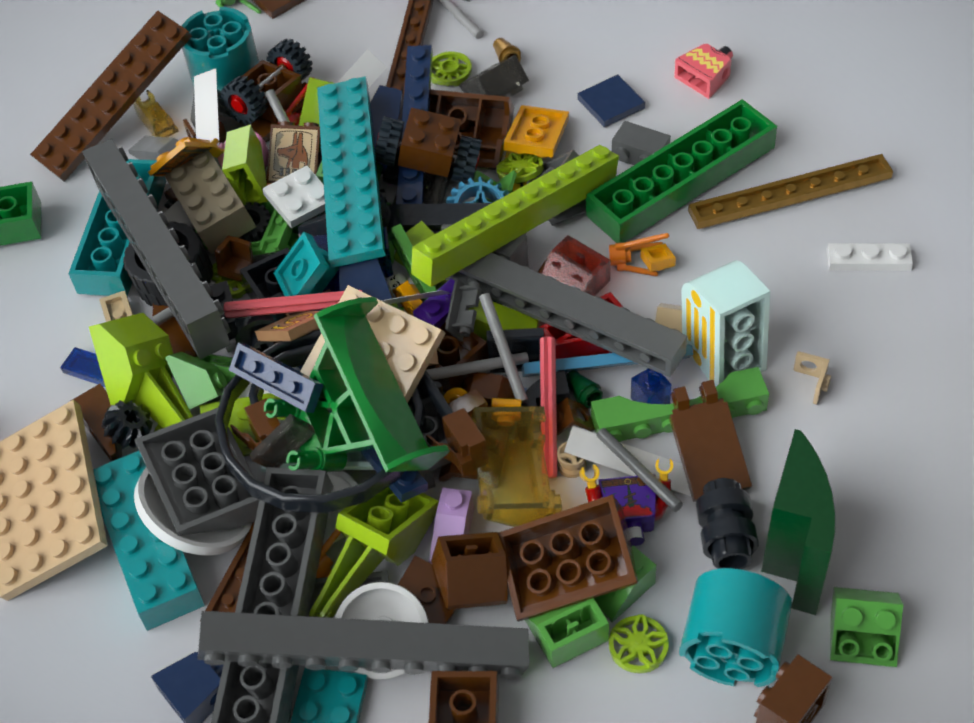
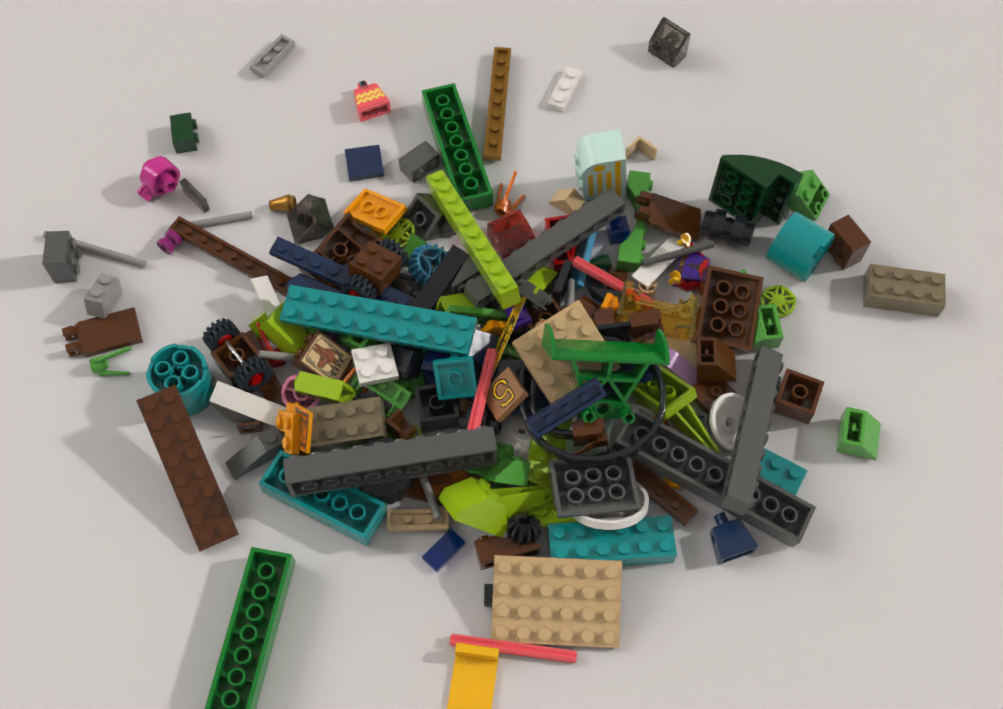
camera: 75 degrees left, 10 degrees up
(154, 117) = (218, 449): clear yellow hinge -> none
(286, 437) = (608, 423): clear smoke tile -> none
(450, 68) = (270, 242): lime wheel -> none
(503, 348) = (570, 285): light grey bar -> none
(658, 257) = (518, 188): light orange plate -> none

